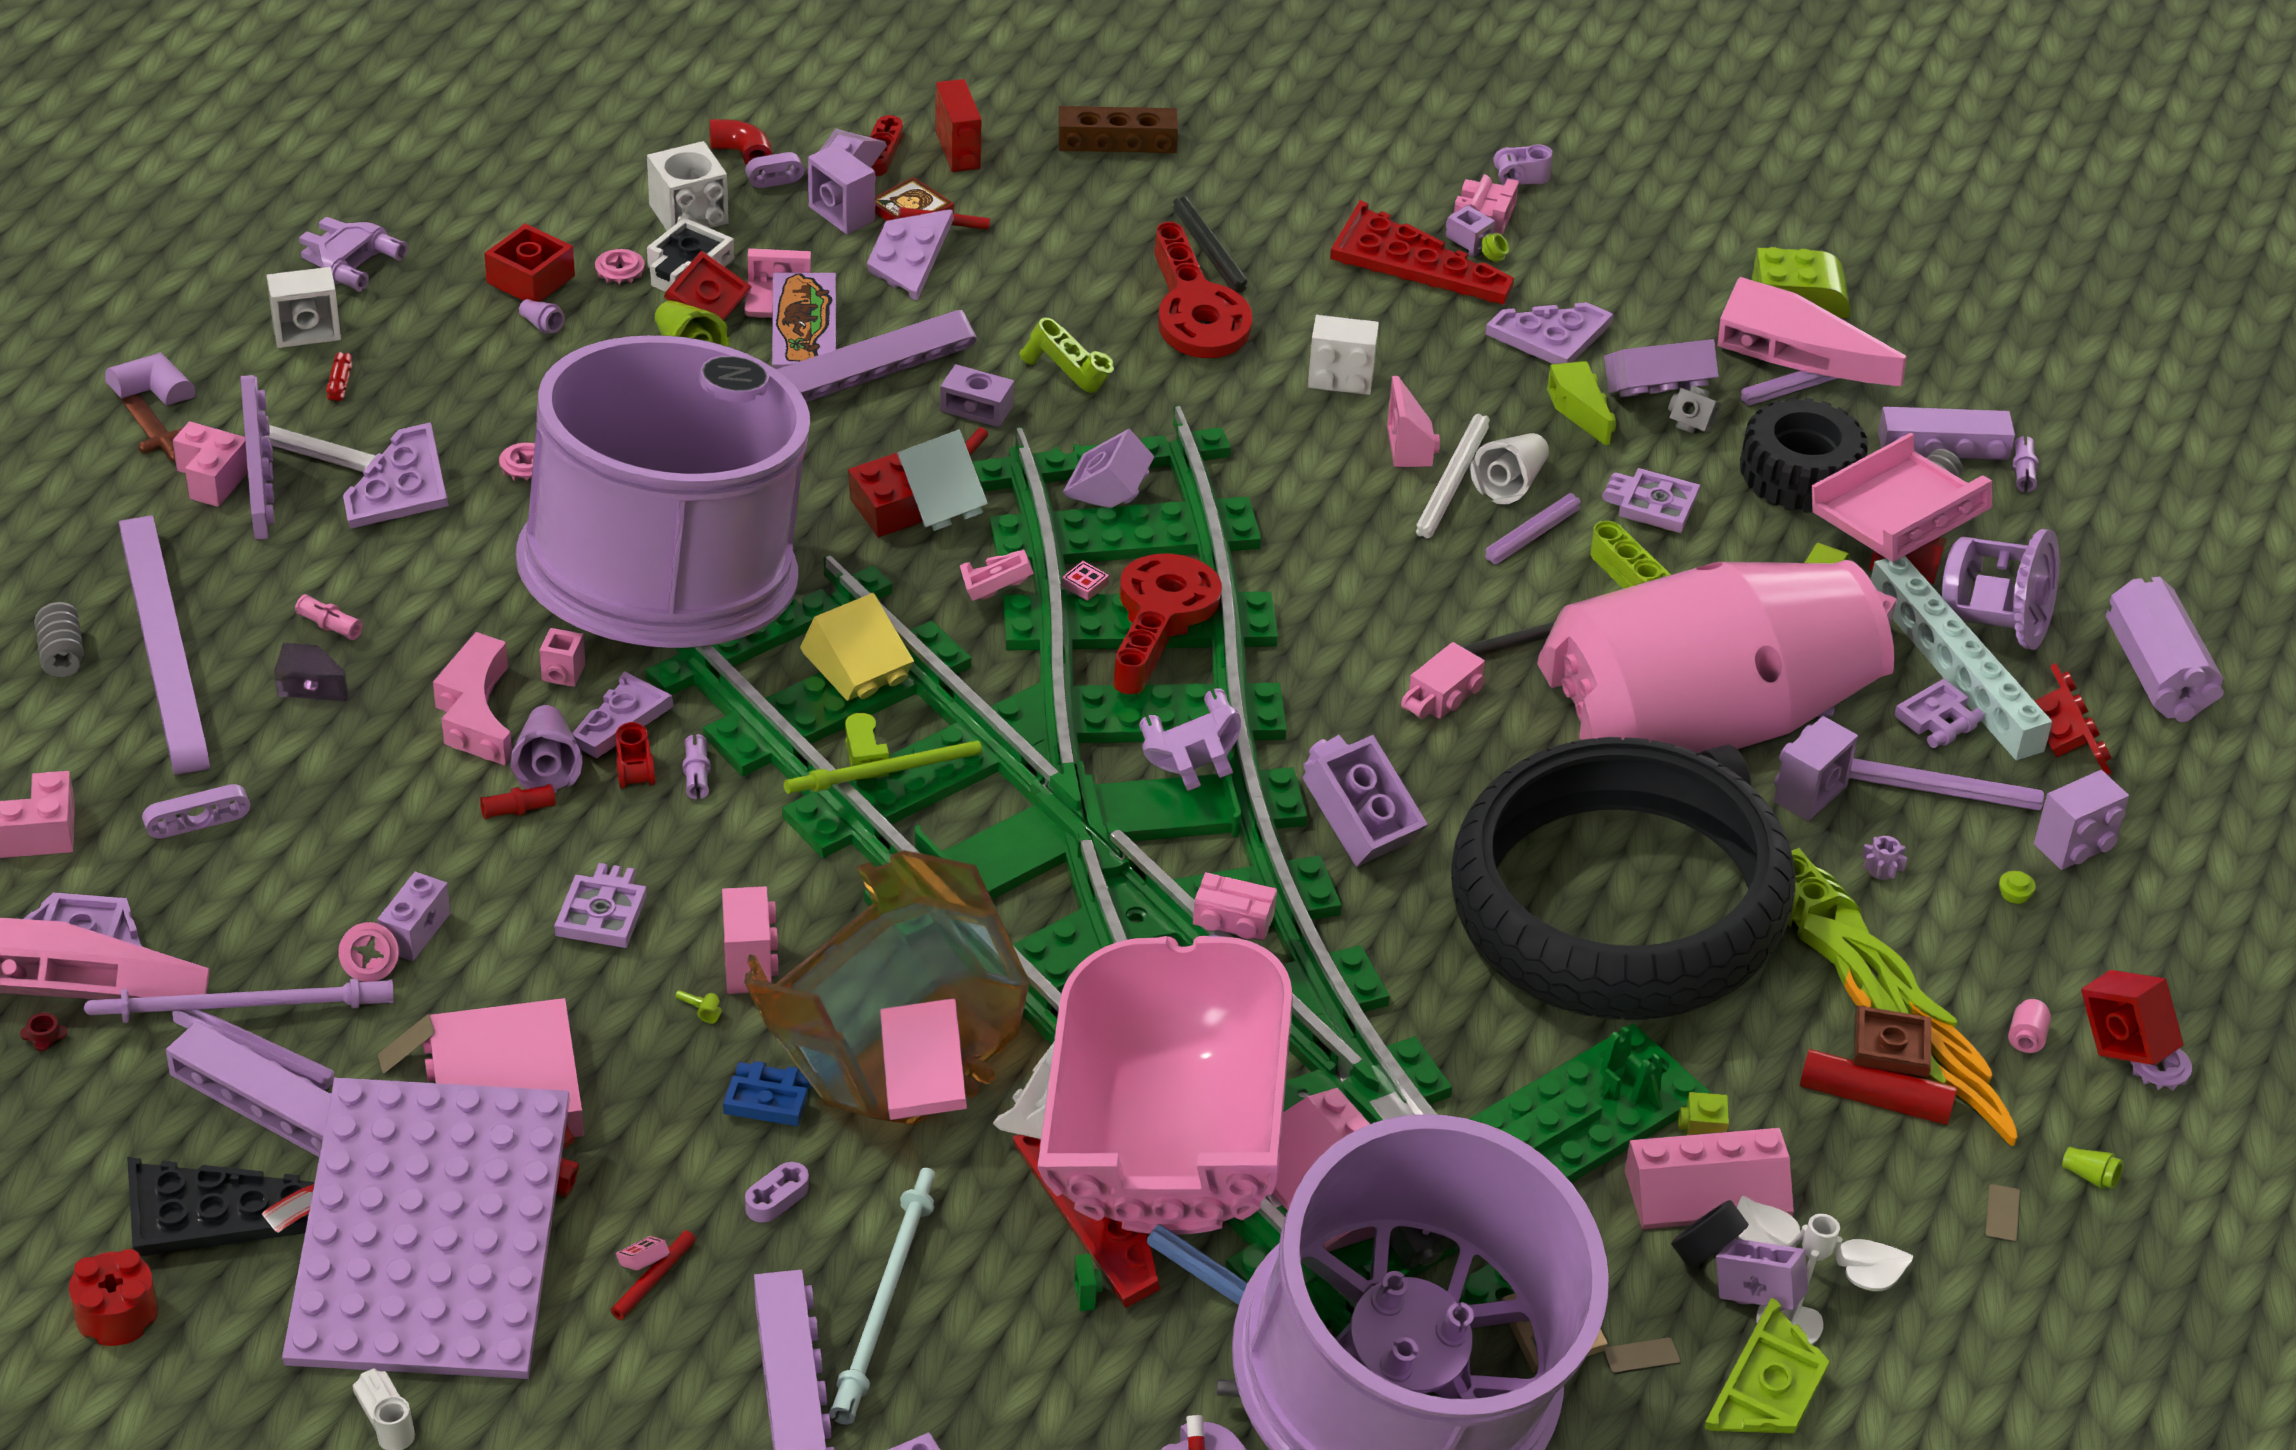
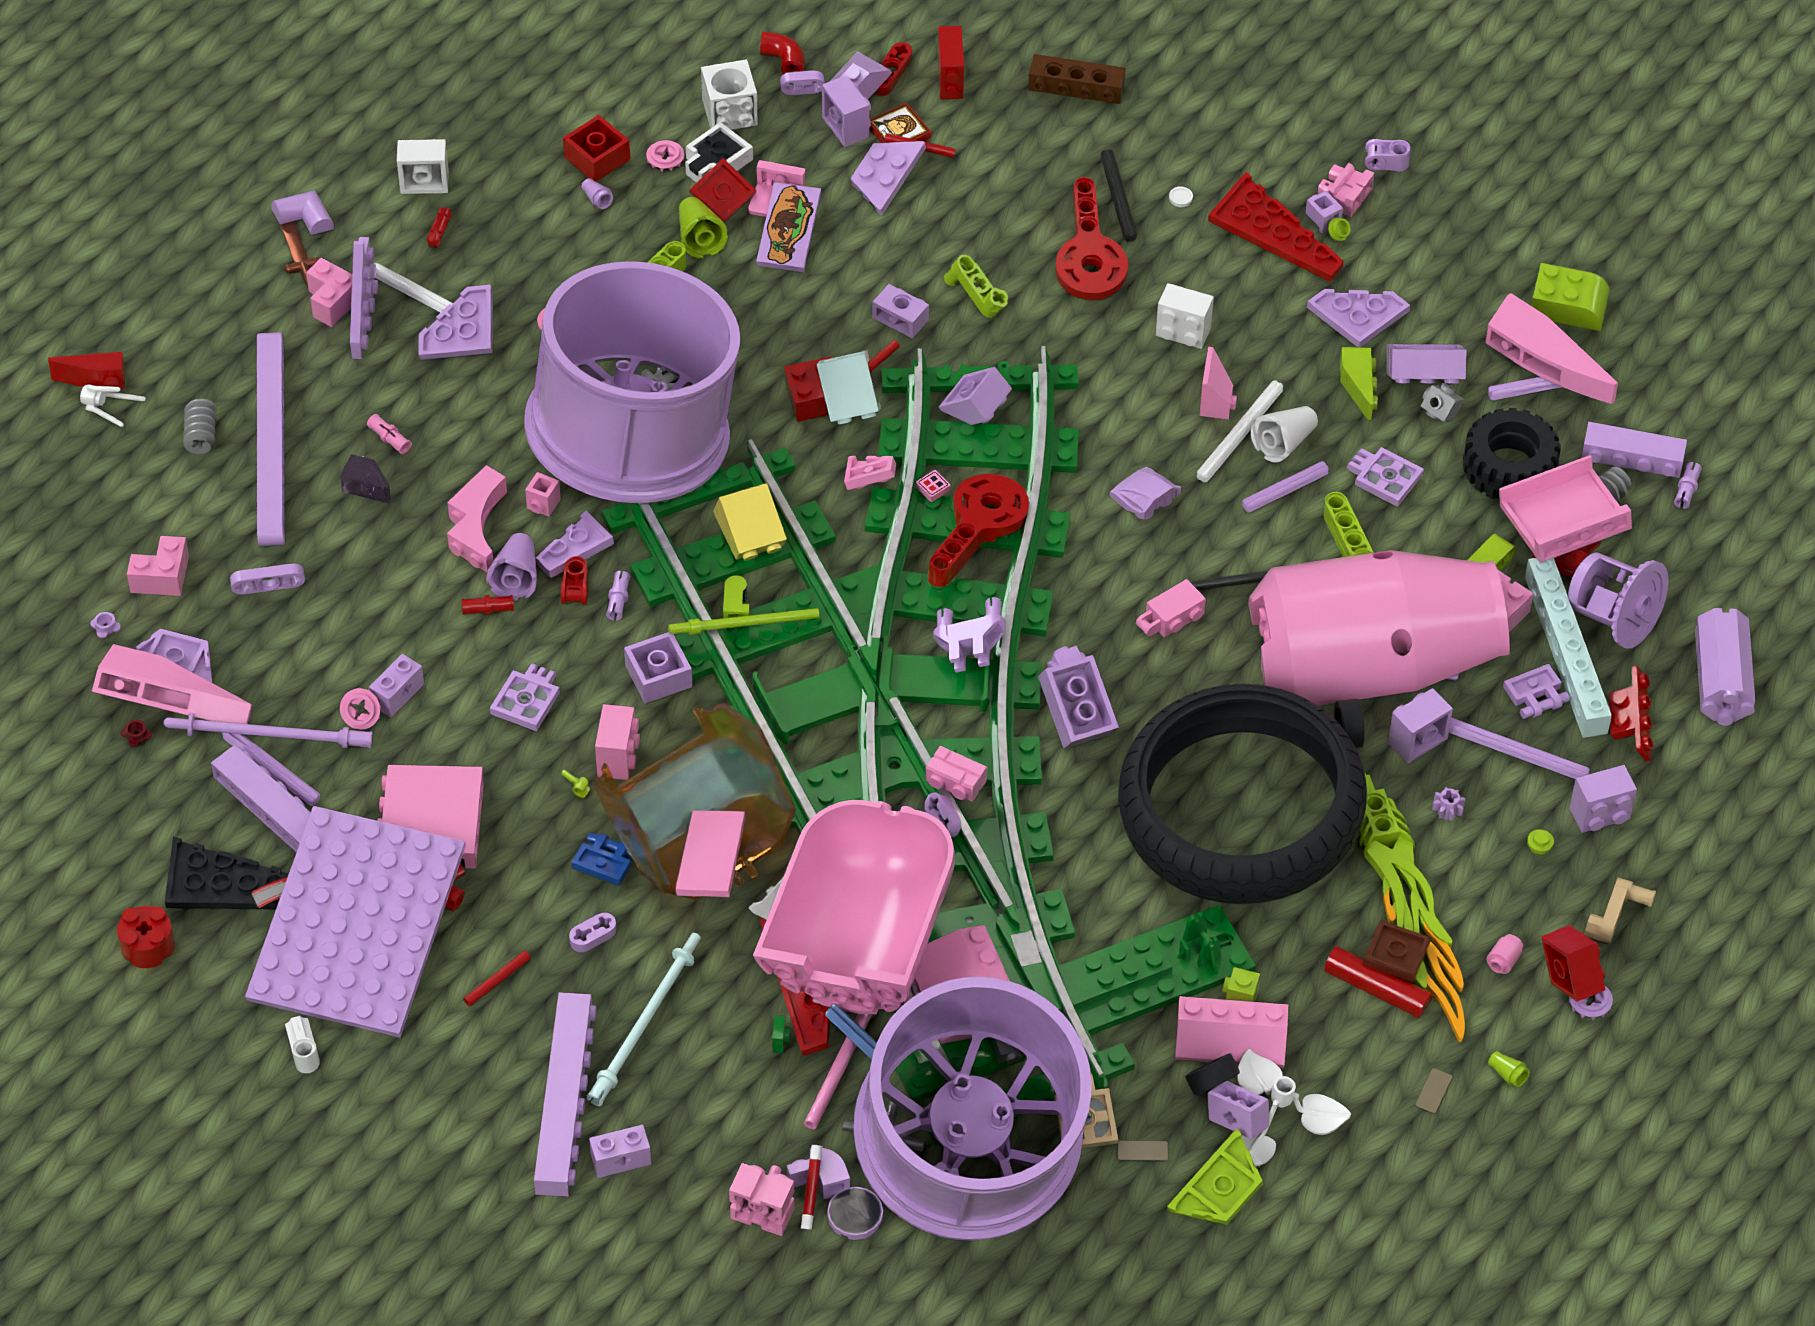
camera: 15 degrees right, 10 degrees up
(347, 247) = (466, 114): lavender connector -> none
(405, 1043) = (370, 782): dark tan sticker -> none
(643, 1253) = (492, 962): bright pink tile -> none
(734, 378) = (691, 309): tile -> none
(779, 841) = (658, 667): none -> lavender brick
(881, 355) = (814, 271): lavender beam -> none
(1178, 1328) = (834, 1076): none -> bright pink piece
(1286, 238) = (1180, 196): none -> white piece
(1358, 557) = (1144, 492): none -> lavender slope
(2146, 931) = (1604, 927): none -> tan beam

